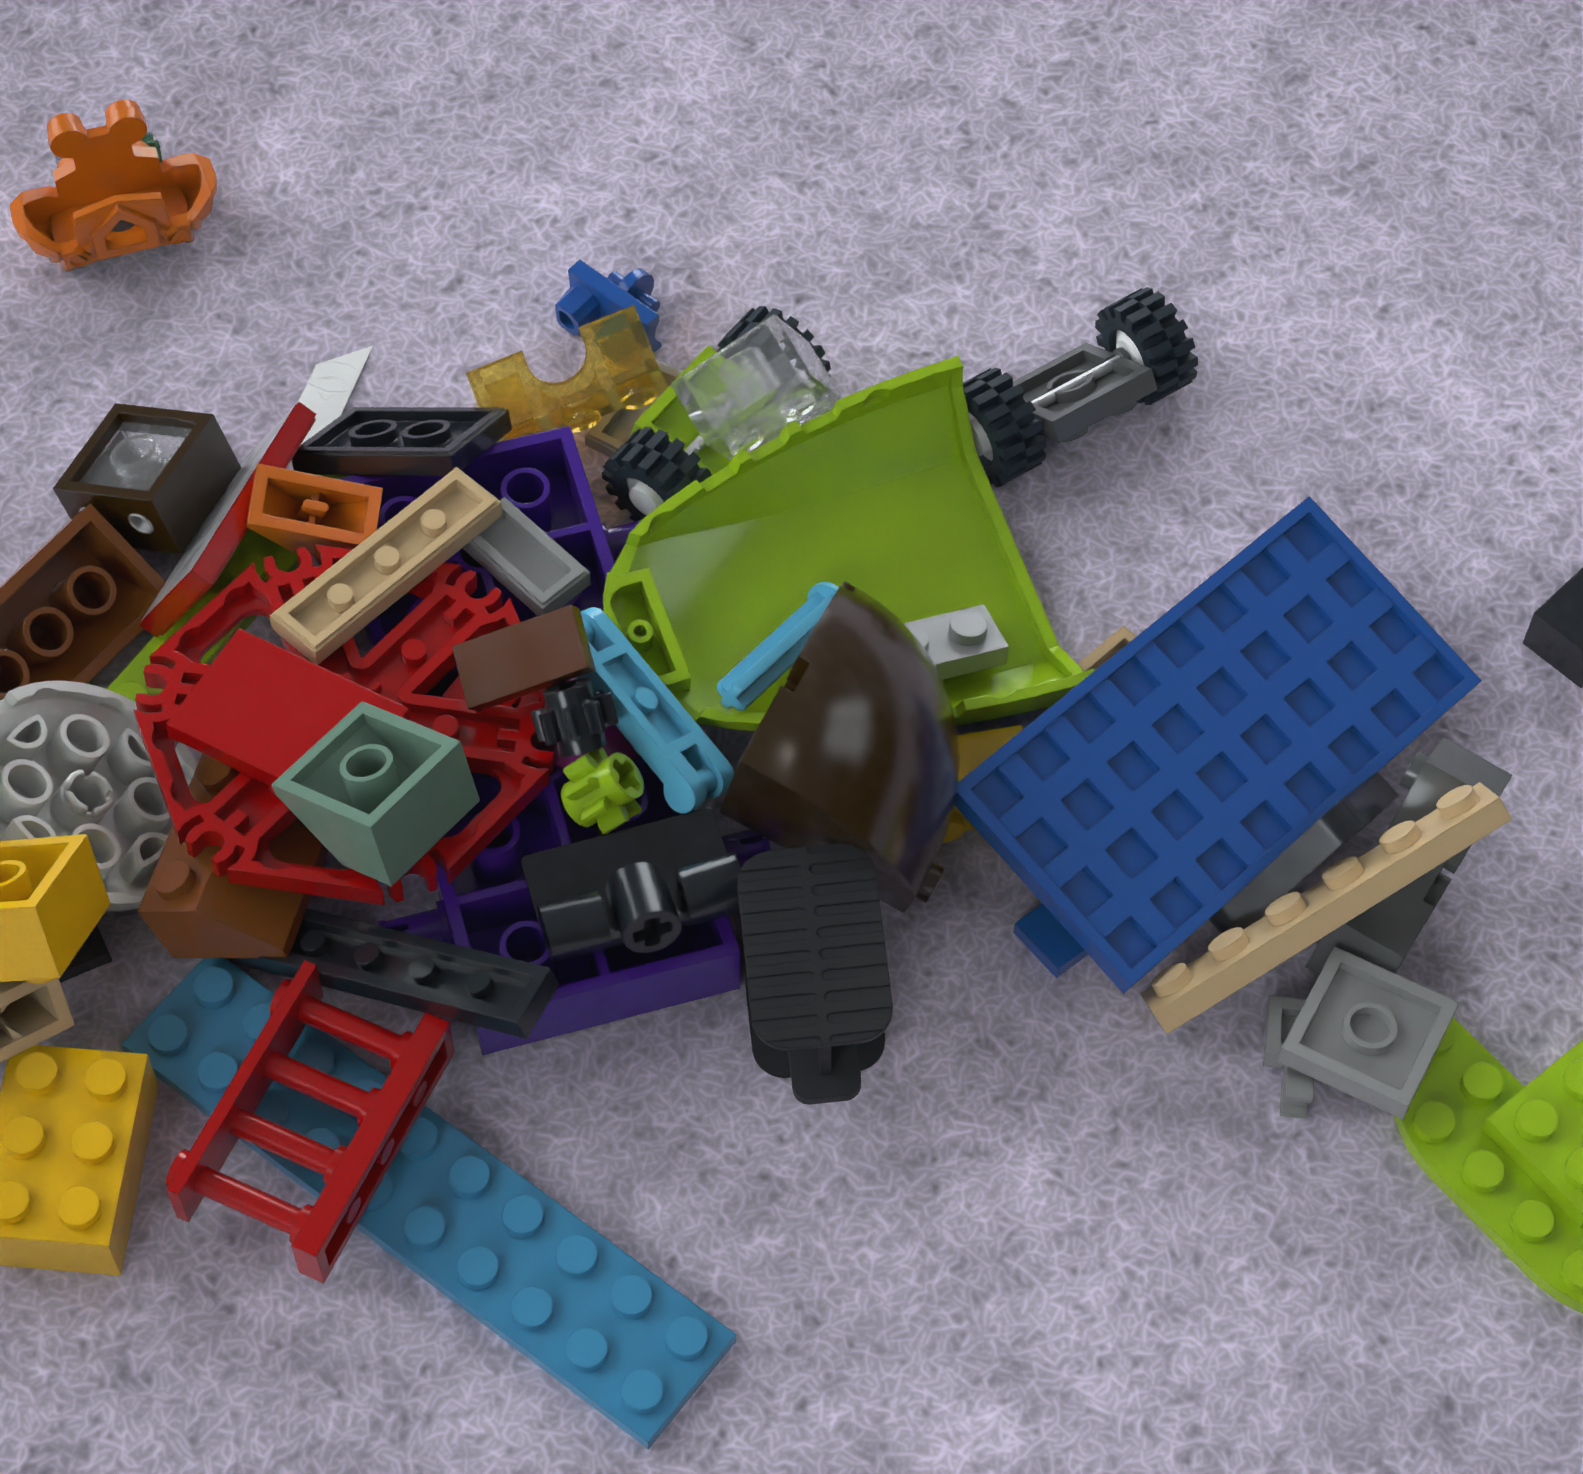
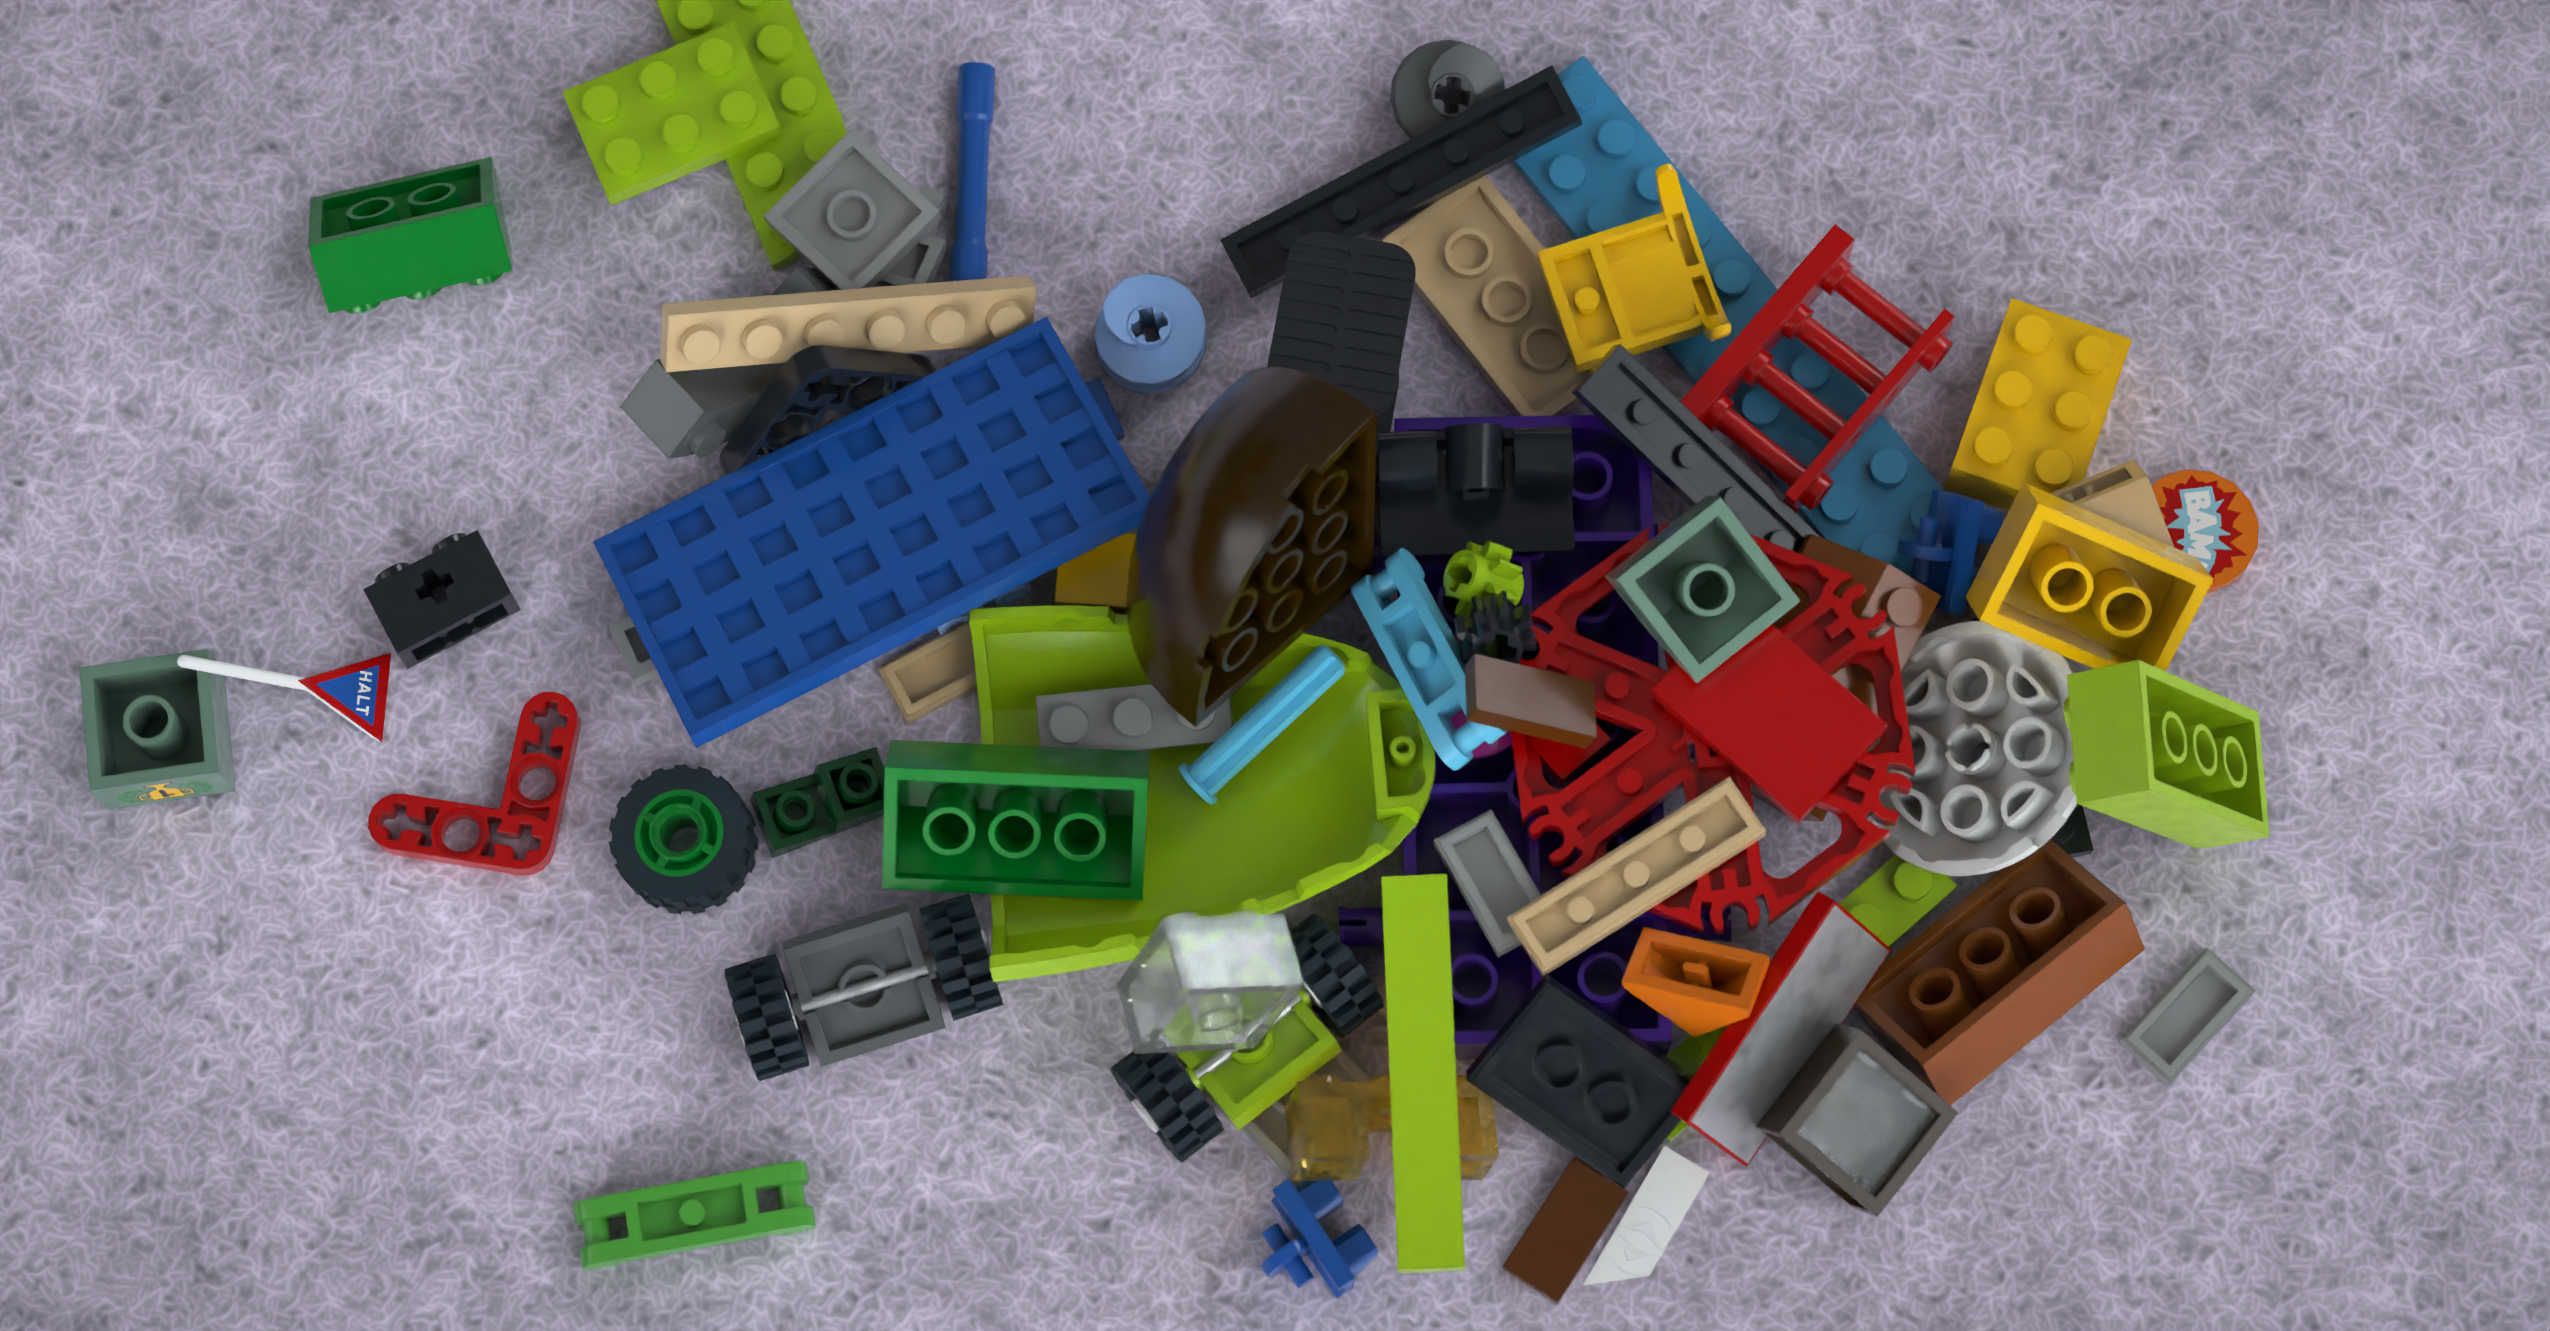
camera: 160 degrees left, 15 degrees up
(137, 992) = (1948, 546): none -> blue hips
(398, 365) = (1565, 1230): none -> reddish brown tile
(521, 1160) = (1634, 283): none -> yellow piece
(550, 402) = (1422, 1074): none -> lime tile
(662, 1148) = (1489, 293): none -> tan plate
(787, 1348) = (1427, 67): none -> dark grey piece
(802, 1230) = (1408, 176): none -> black plate
(989, 531) = (1015, 820): none -> green slope
(1019, 1044) = (1178, 320): none -> light blue piece
(1145, 221) = (694, 1214): none -> bright green plate
(1169, 548) = (821, 804): none -> dark green slope
(1277, 447) = (706, 870): none -> black wheel
(1288, 1202) = (974, 118): none -> blue piece
(1443, 473) = (515, 811): none -> red beam

